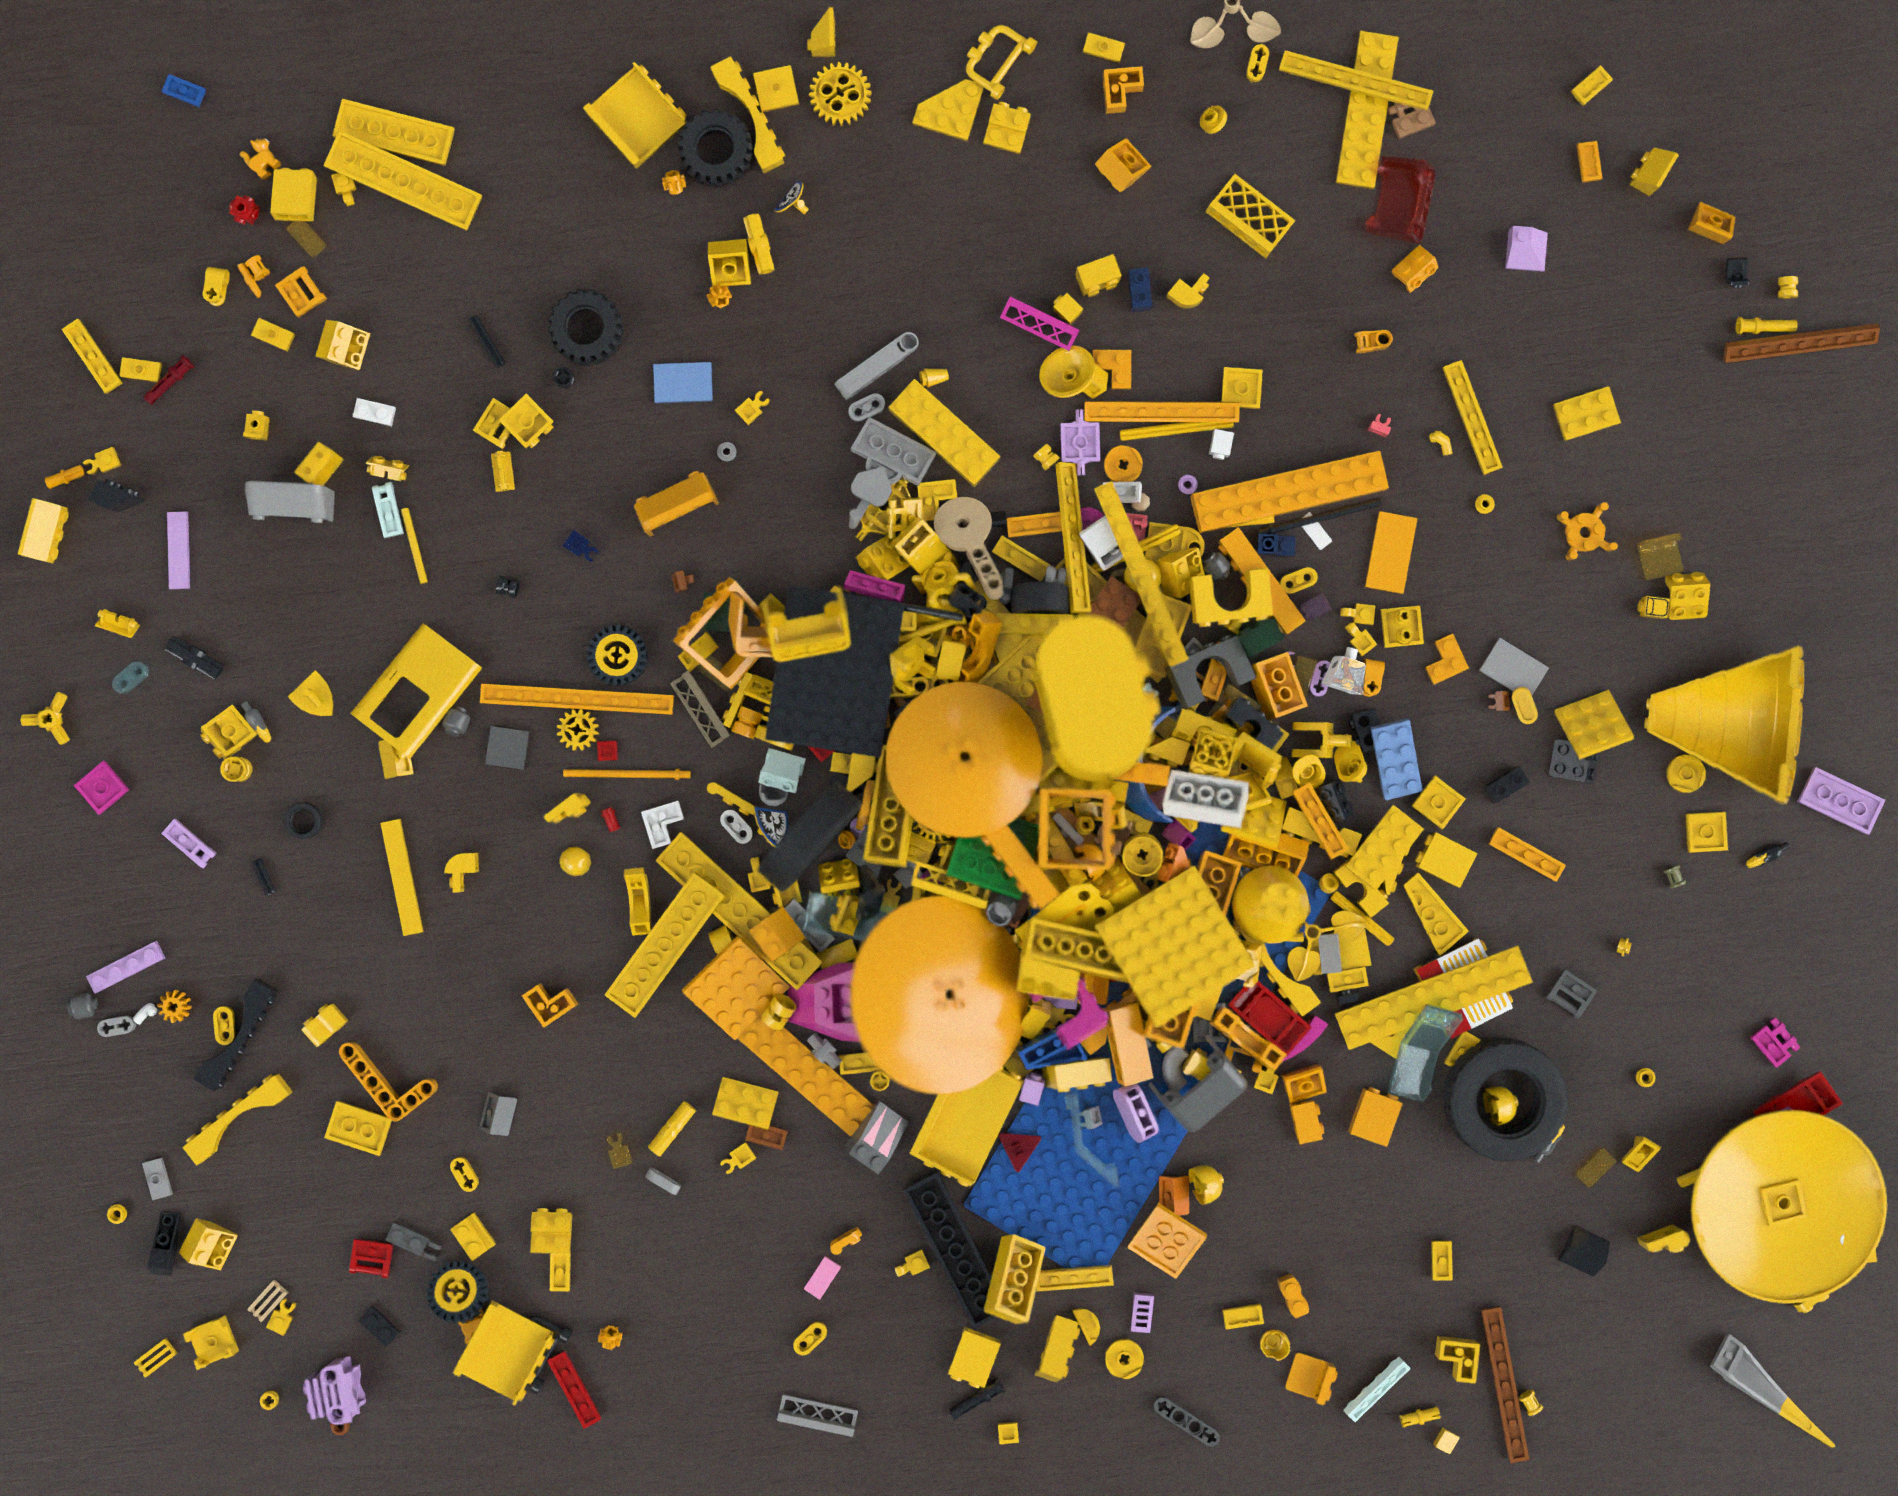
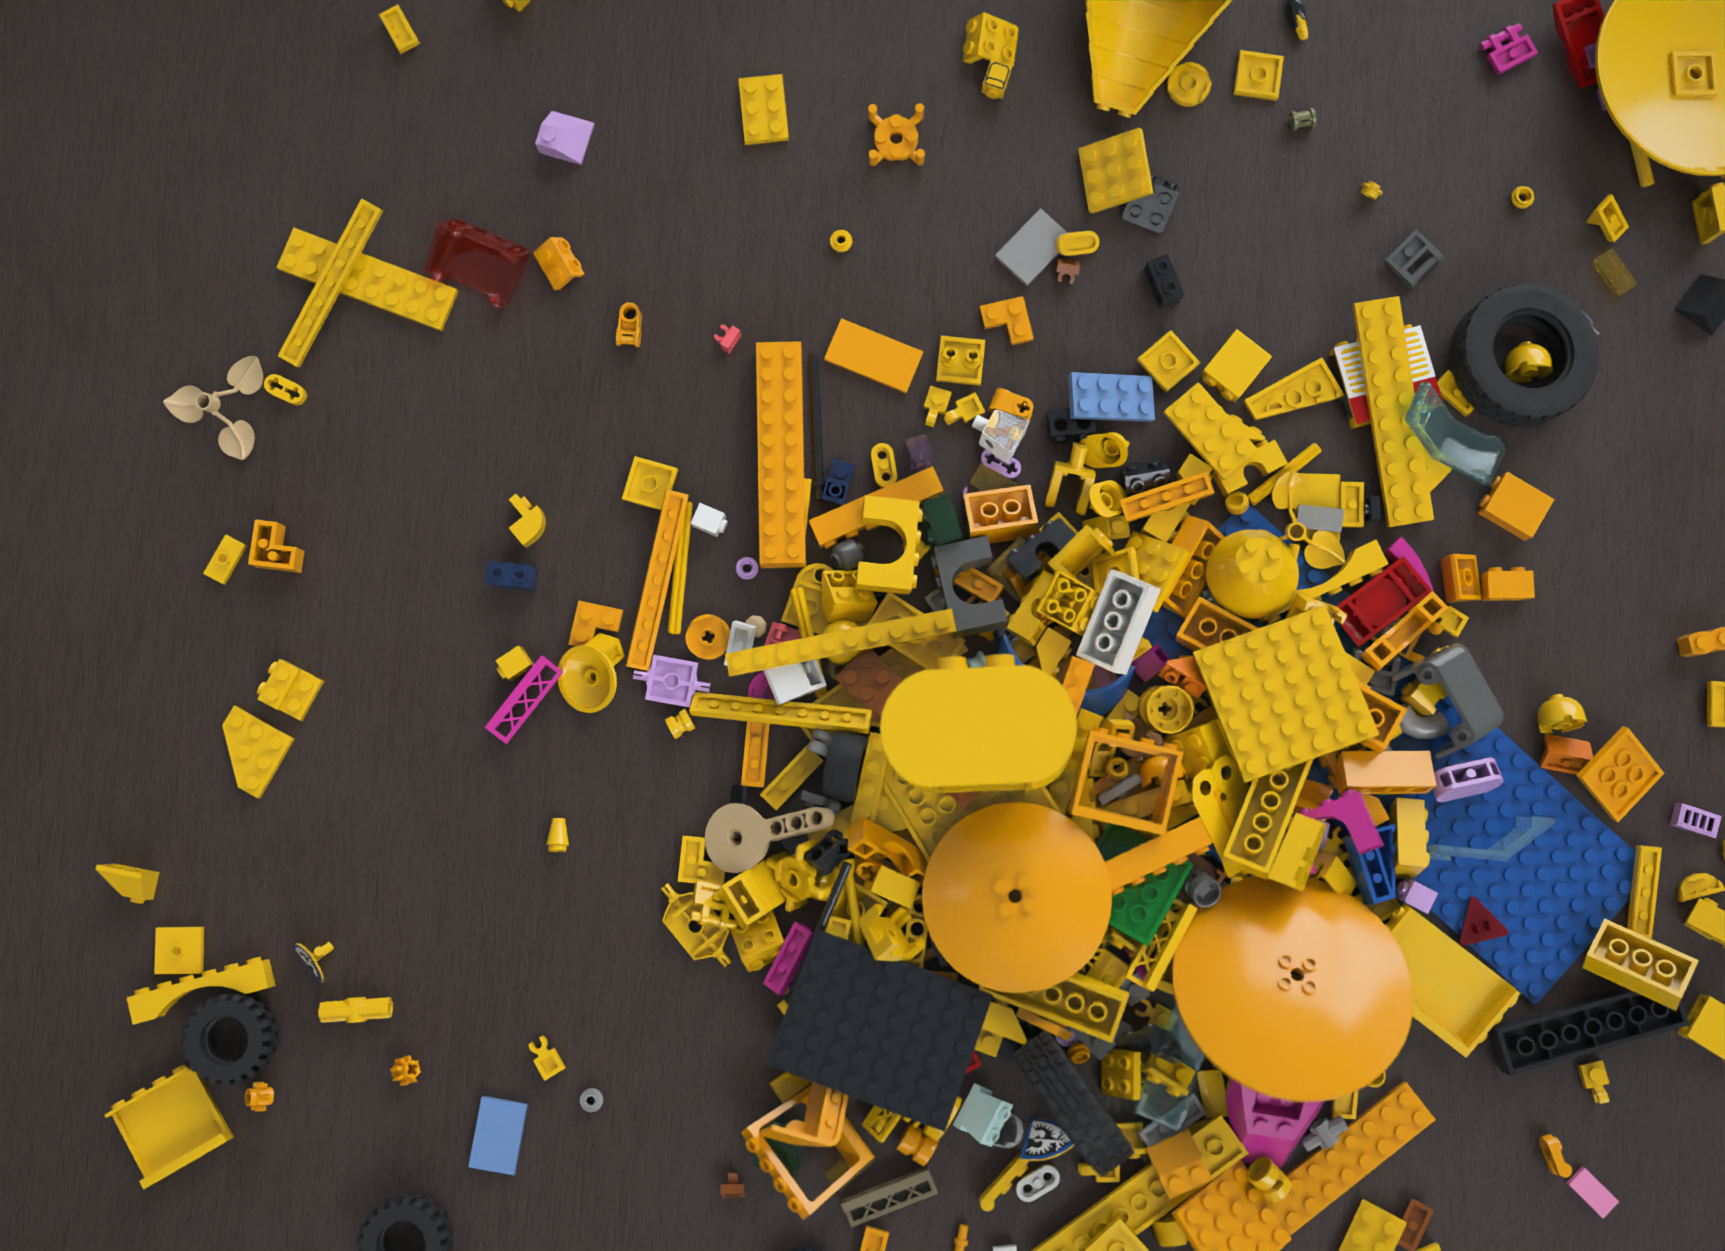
camera: 75 degrees left, 5 degrees down
(674, 501) = (637, 1178): light orange windscreen -> none
(703, 646) = (818, 1181): yellow plate -> none
(729, 262) = (369, 1050): yellow slope -> none
(737, 700) = (888, 1150): yellow plate -> none
(809, 634) = (830, 1055): yellow windscreen -> none
(810, 1337) = (1662, 1221): yellow plate -> none
(830, 79) = (184, 883): yellow gear -> none
(866, 406) = (574, 922): light grey plate -> none
(877, 365) = (529, 899): light grey piece -> none
(877, 1137) = (1440, 1092): slope -> none
(888, 459) = (642, 910): light grey plate -> none
(944, 432) = (625, 837): yellow brick -> none
(986, 40) = (183, 692): yellow bar -> none
(1092, 1117) = (1461, 831): light grey tile -> none
(1098, 275) = (484, 620): yellow brick -> none
(1122, 165) = (364, 566): light orange slope -> none
(1213, 119) = (336, 452): yellow plate -> none
(1239, 227) = (468, 447): yellow fence -> none
(1317, 533) = (834, 434): white sticker -> none
(1412, 122) = (393, 233): medium nougat plate -> none
(1441, 1260) = (1692, 465): yellow plate -> none
(1443, 440) = (760, 271): yellow arm -> none
(1472, 417) = (740, 234): yellow plate -> none
(1526, 854) = (1246, 275): light orange plate -> none
(1589, 161) = (483, 48): light orange plate -> none
(1660, 556) = (940, 61): clear yellow bracket -> none

